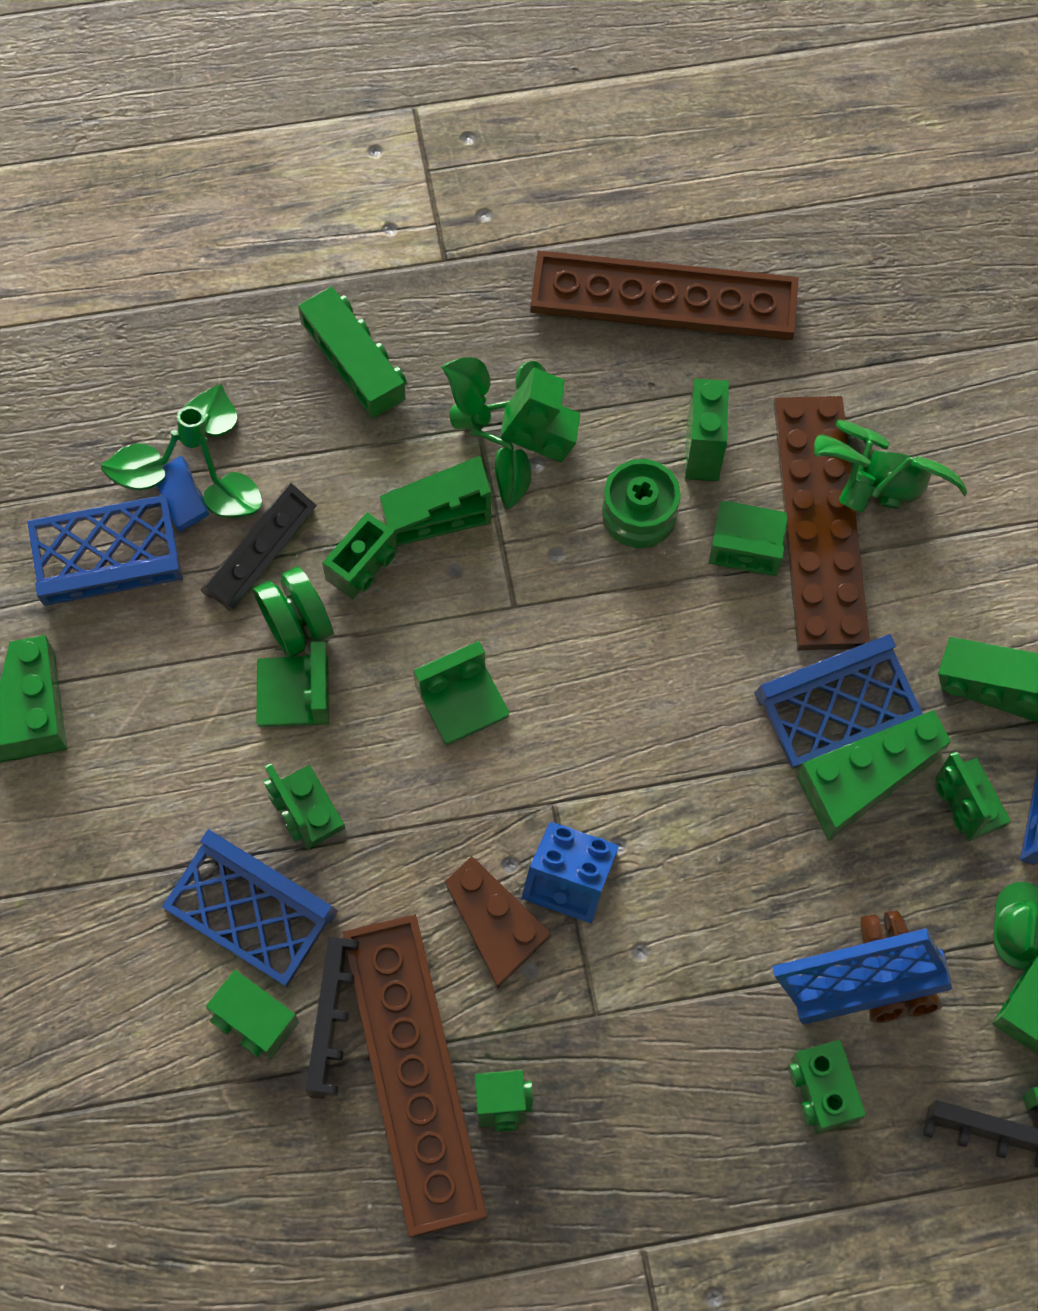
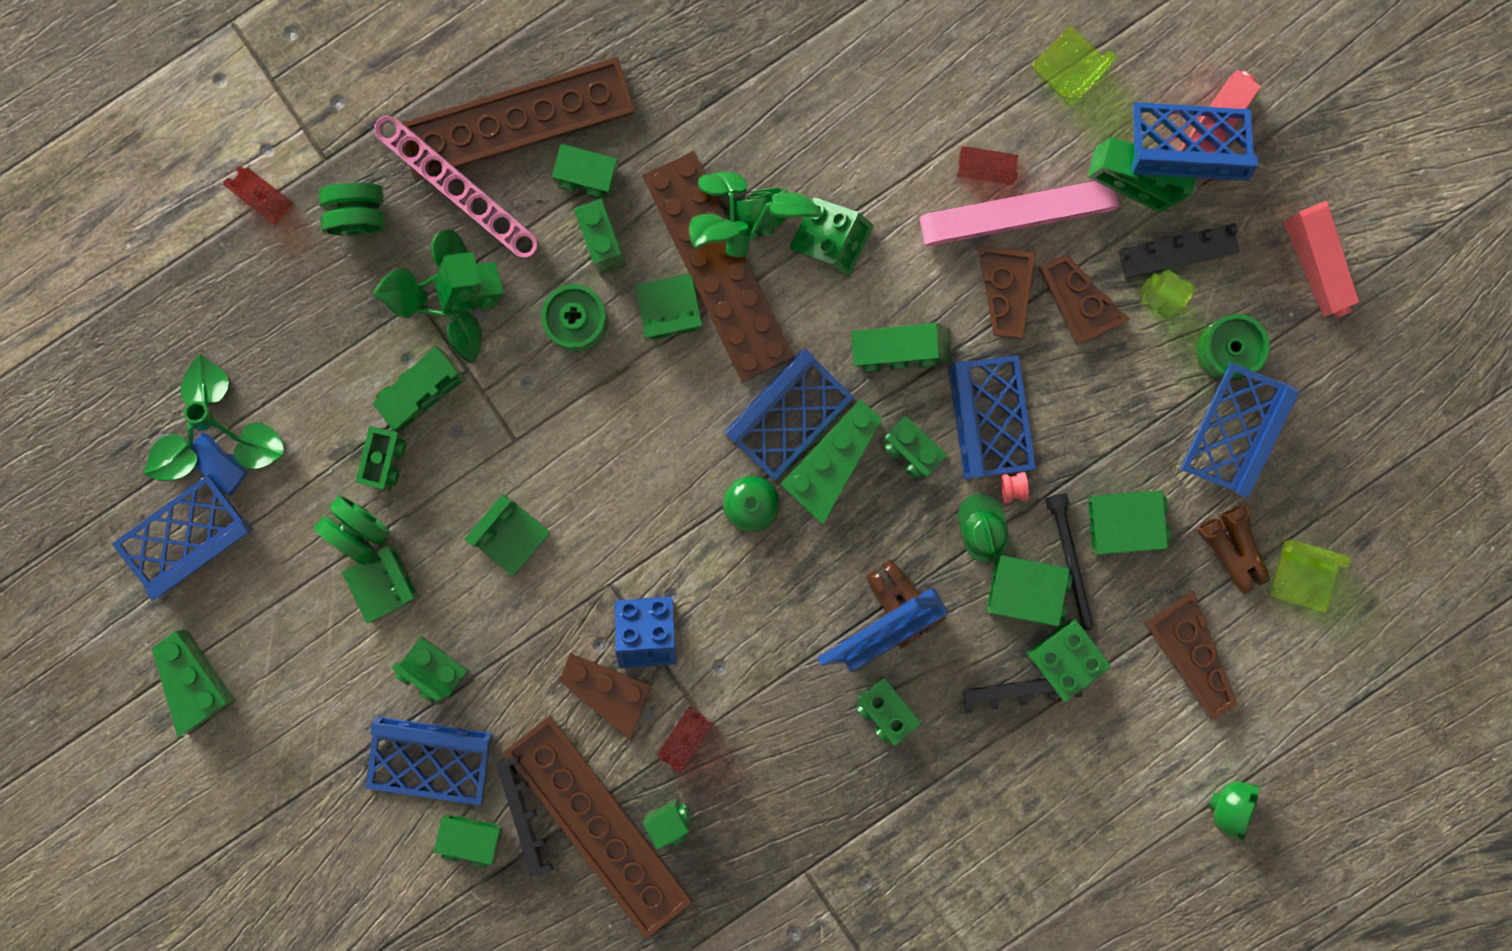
camera: 20 degrees left, 20 degrees up
(259, 547) = (299, 480): black hinge -> none
(353, 352) = (290, 284): green brick -> none
(360, 262) = (258, 194): none -> clear red hinge
(453, 304) = (352, 209): none -> green wheel
(565, 1014) = (685, 739): none -> clear red hinge
(576, 342) = (444, 180): none -> bright pink beam
(716, 359) = (585, 171): none -> green brick
(755, 780) = (751, 504): none -> green cylinder
(966, 535) = (834, 237): none -> green bracket

